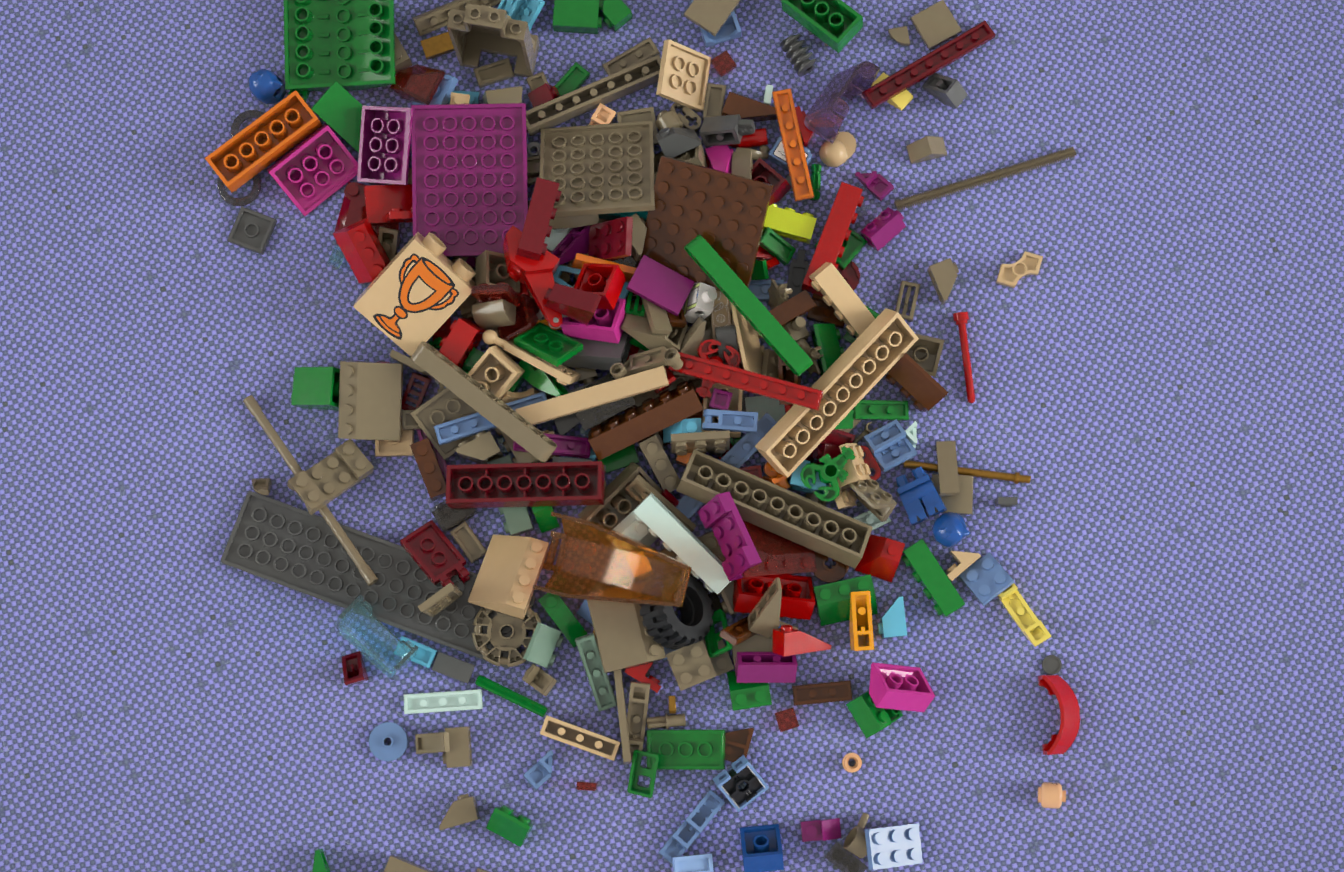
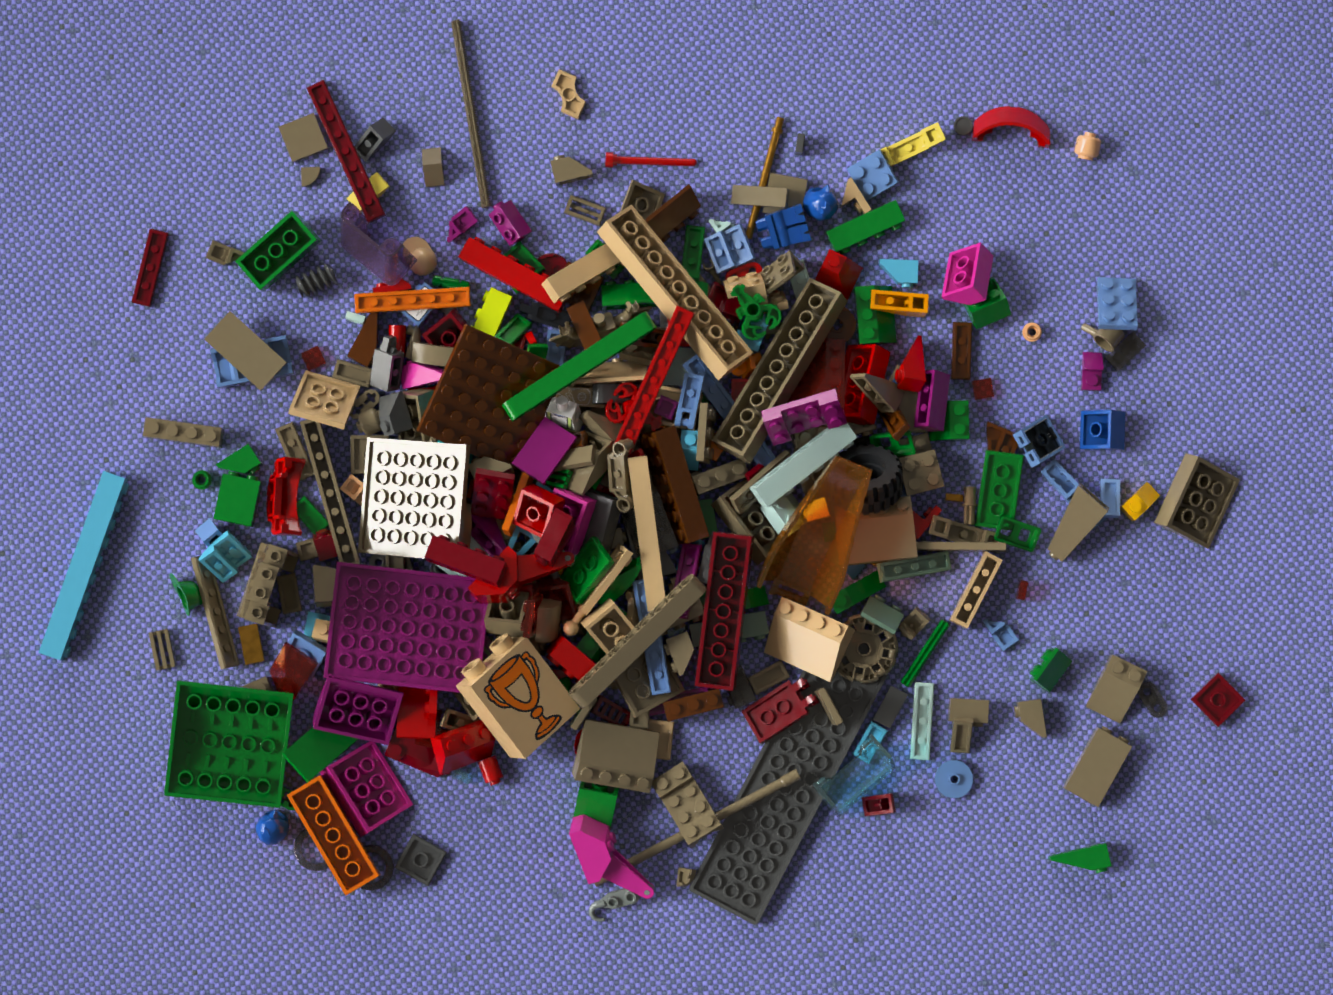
camera: 90 degrees left, 5 degrees up
(272, 391) = (600, 860): none -> dark pink slope
(345, 284) = (490, 770): none -> red brick
(585, 53) = (282, 496): none -> red windscreen
(665, 834) = (1079, 519): none -> dark tan slope

